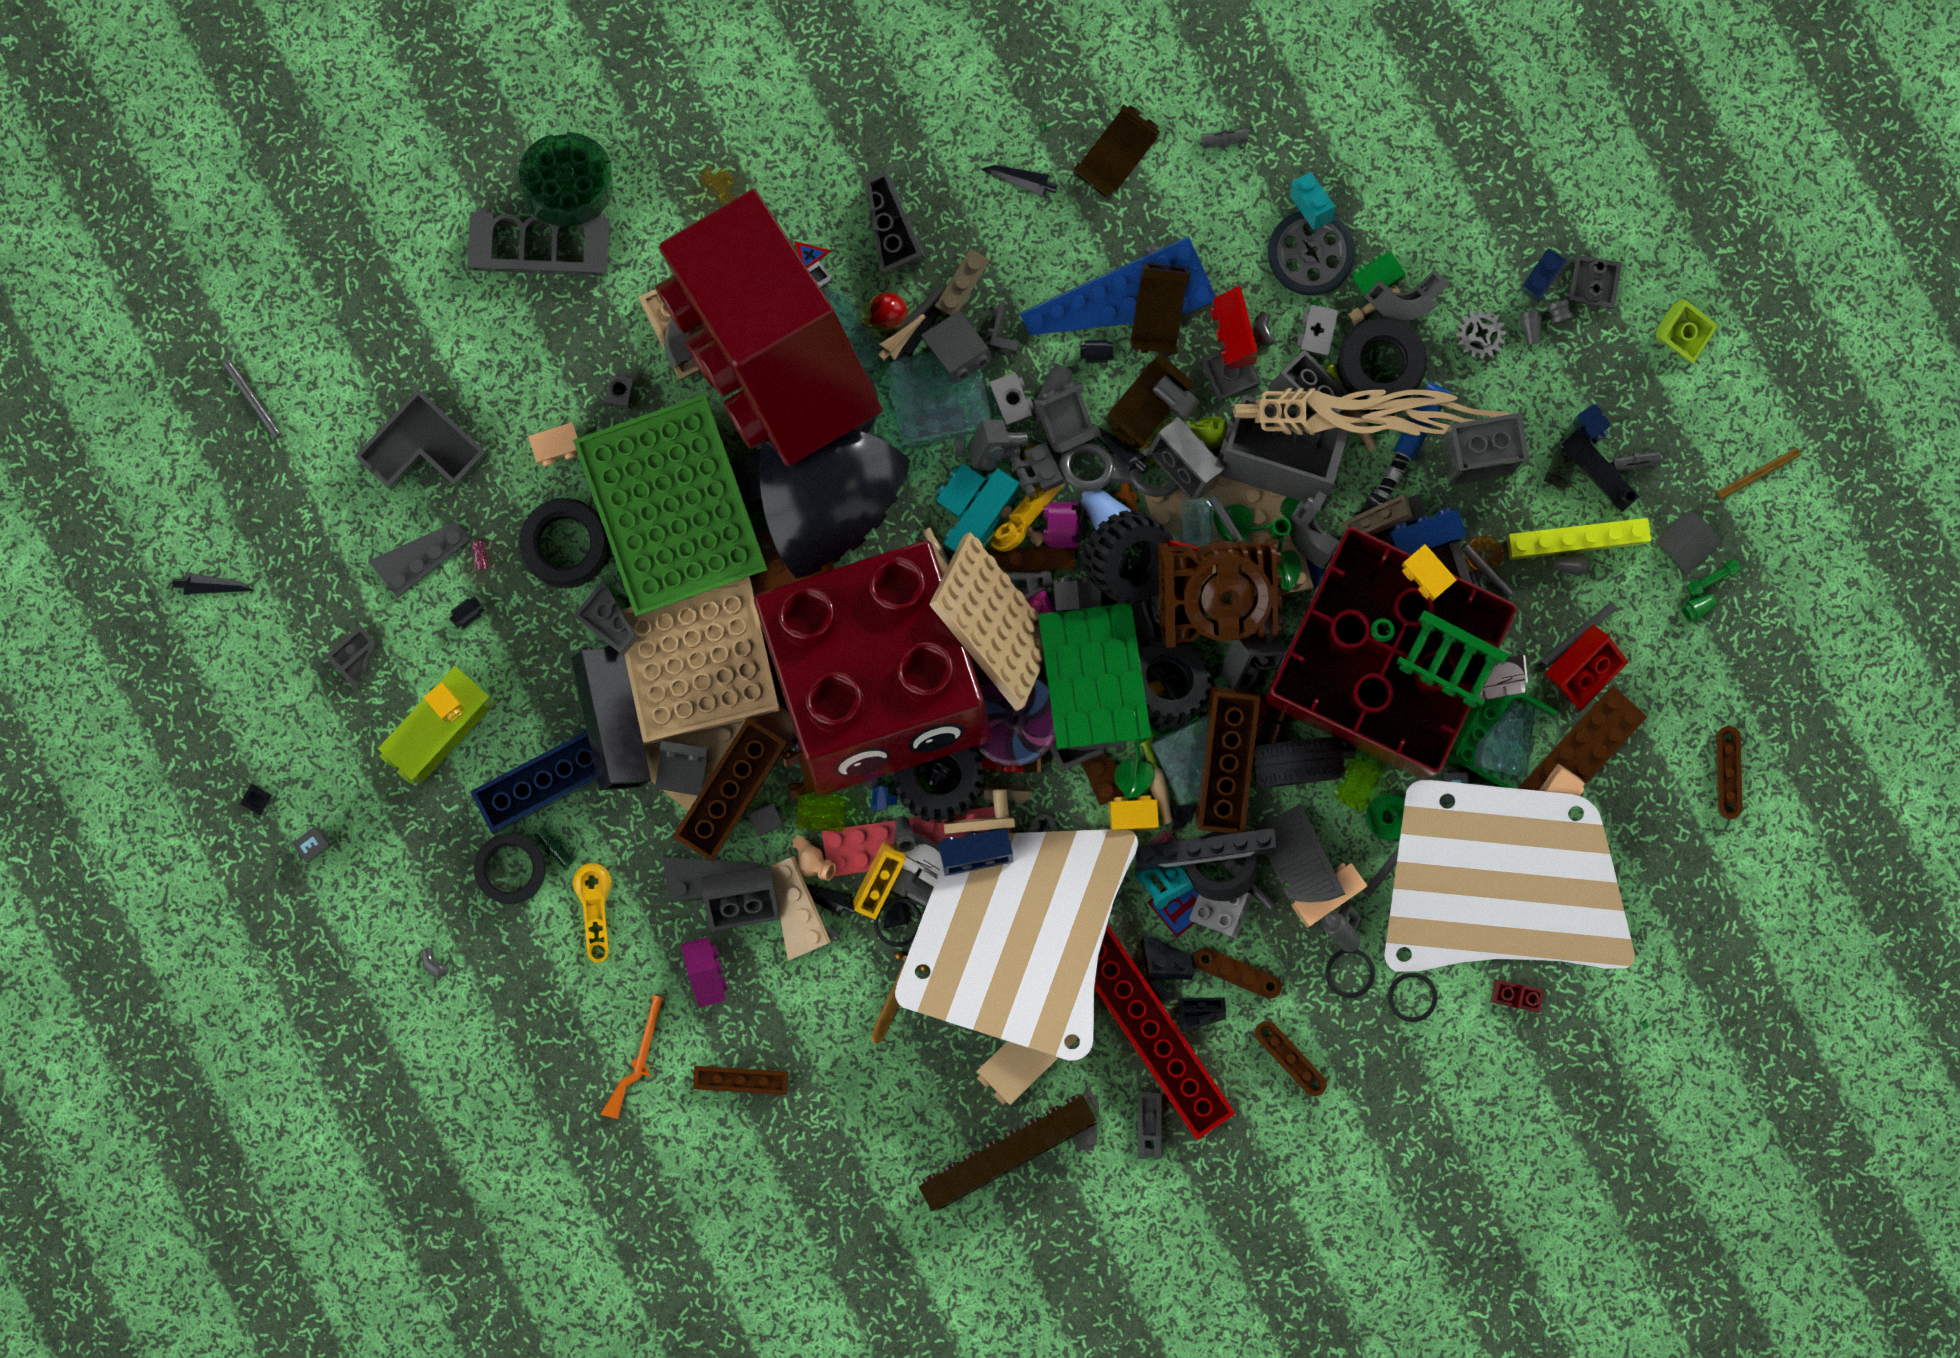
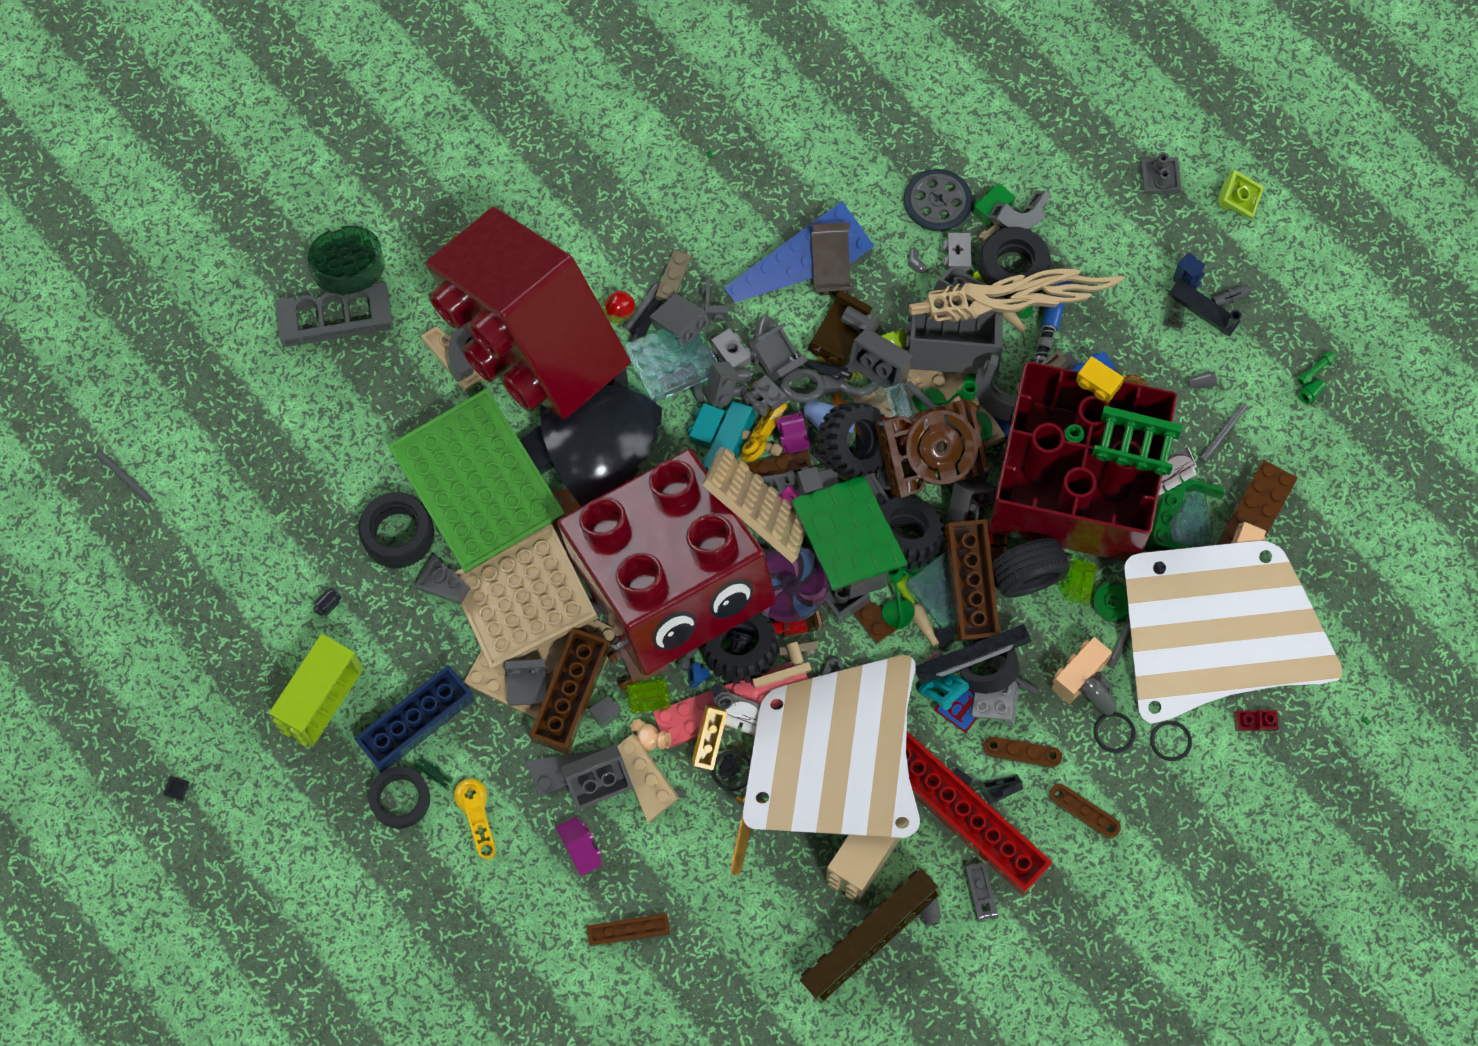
camera: 10 degrees left, 15 degrees down
(204, 584) = (105, 627): black bar -> none
(312, 844) = (229, 813): dark grey brick -> none
(352, 655) = (238, 655): dark grey wing -> none
(416, 433) = (265, 471): dark grey piece -> none
(416, 559) = (278, 571): dark grey wing -> none
(431, 966) = (348, 892): dark grey arm -> none
(444, 703) = (317, 660): yellow brick -> none
(480, 555) = (329, 555): clear pink pin -> none
(554, 444) = (374, 458): light nougat brick -> none
(610, 718) = (460, 656): black brick -> none
(614, 1104) = (525, 973): orange piece -> none
(624, 400) = (422, 415): dark grey brick -> none
(831, 900) = (673, 766): black bar -> none
(894, 233) = (612, 249): dark grey wedge -> none
(894, 344) = (630, 329): tan piece -> none
(909, 886) = (734, 739): dark grey piece -> none
(975, 851) = (784, 696): dark blue brick -> none
(1028, 180) = (707, 194): black bar -> none
(1096, 351) = (790, 303): black brick -> none
(1117, 151) = (771, 159): dark brown panel -> none
(1133, 815) = (906, 642): yellow brick -> none
(1165, 961) = (961, 754): black wing -> none
(1224, 138) = (851, 134): dark grey pin -> none
(1225, 381) = (897, 296): dark grey tile -> none
(1234, 329) = (894, 262): red slope -> none
(1301, 859) = (1053, 646): dark grey piece -> none
(1312, 201) = (929, 160): teal brick -> none
(1476, 324) = (1083, 223): light grey gear -> none
(1484, 448) = (1113, 299): dark grey container -> none
(1531, 326) = (1121, 216): dark grey cone -> none
(1543, 275) = (1120, 178): dark blue brick -> none
(1560, 312) = (1140, 201): dark grey wheel -> none
(1578, 538) = (1203, 360): neon yellow brick -> none
(1586, 667) = (1237, 453): red slope -> none
(1688, 541) = (1289, 345): dark grey slope -> none
(1729, 772) = (1374, 510): reddish brown plate -> none
(1760, 472) = (1327, 286): pearl gold bar -> none

